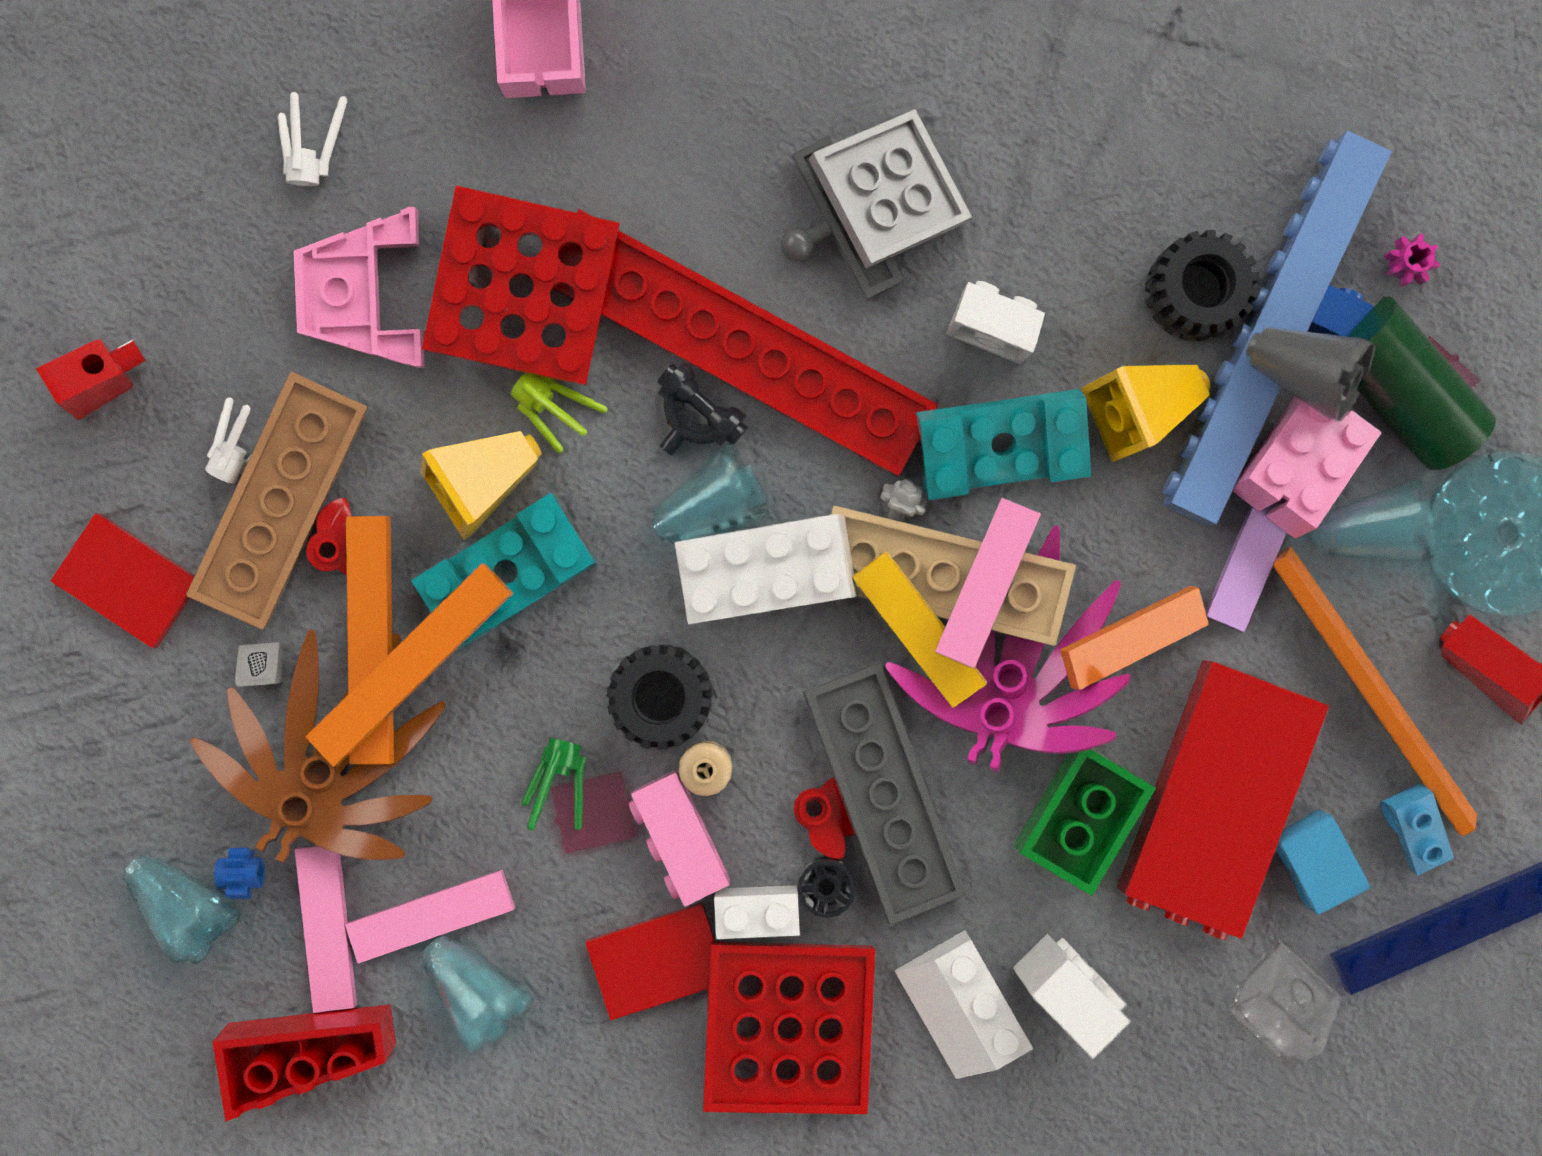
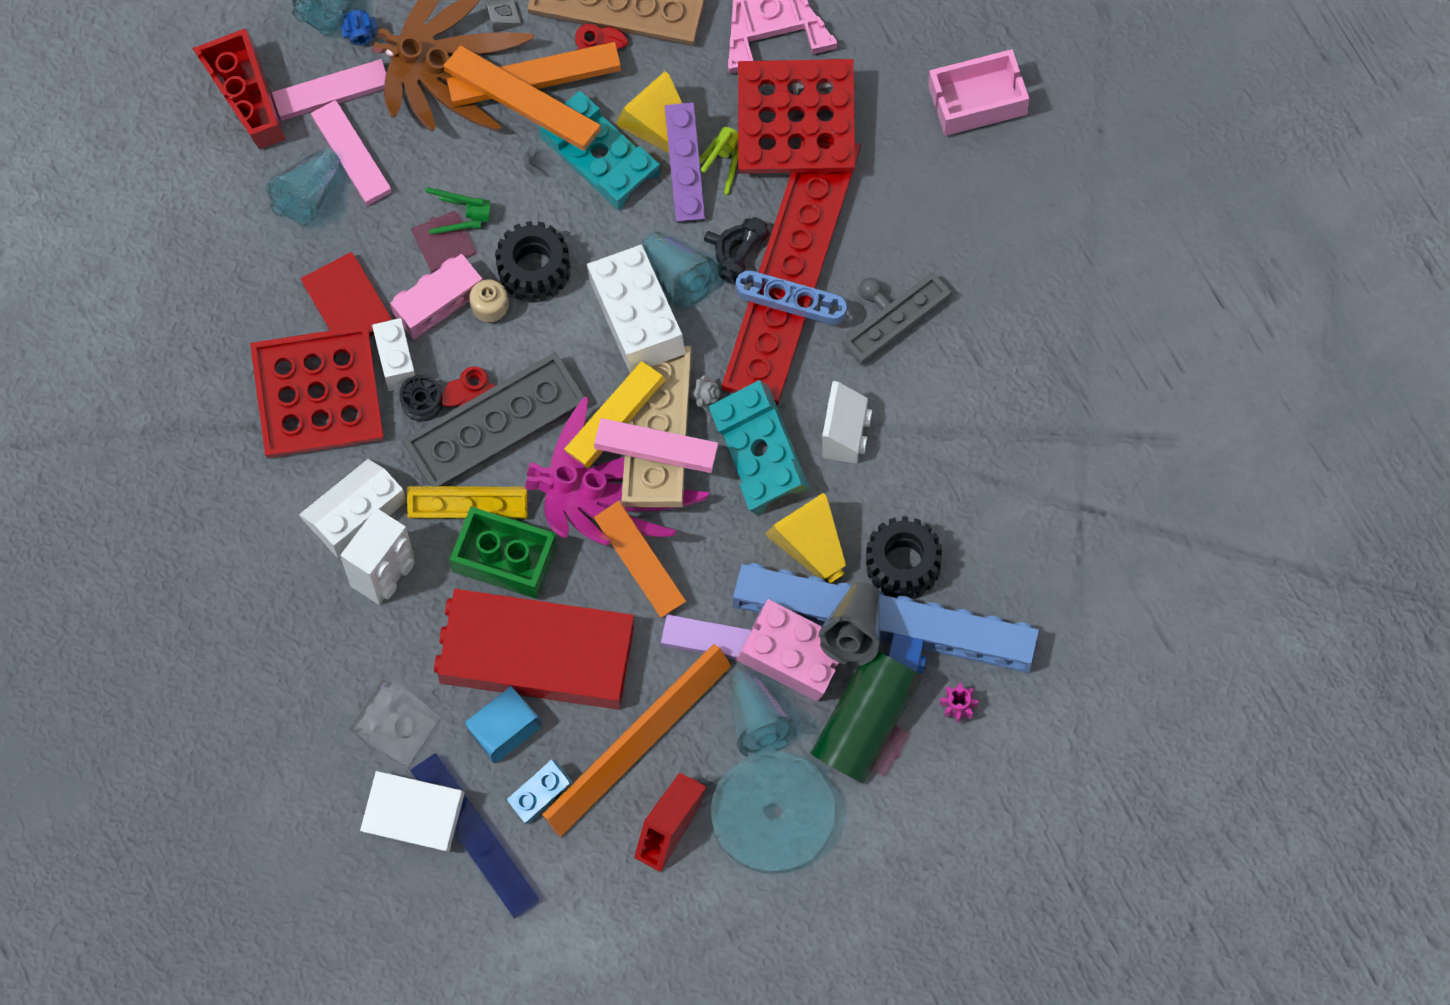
camera: 85 degrees right, 20 degrees down
(556, 456) = (684, 162): none -> medium lavender plate
(797, 355) = (789, 301): none -> medium blue beam
(890, 188) = (922, 337): plate -> none
(992, 851) = (456, 501): none -> yellow tile
(1415, 1003) = (412, 811): none -> white tile

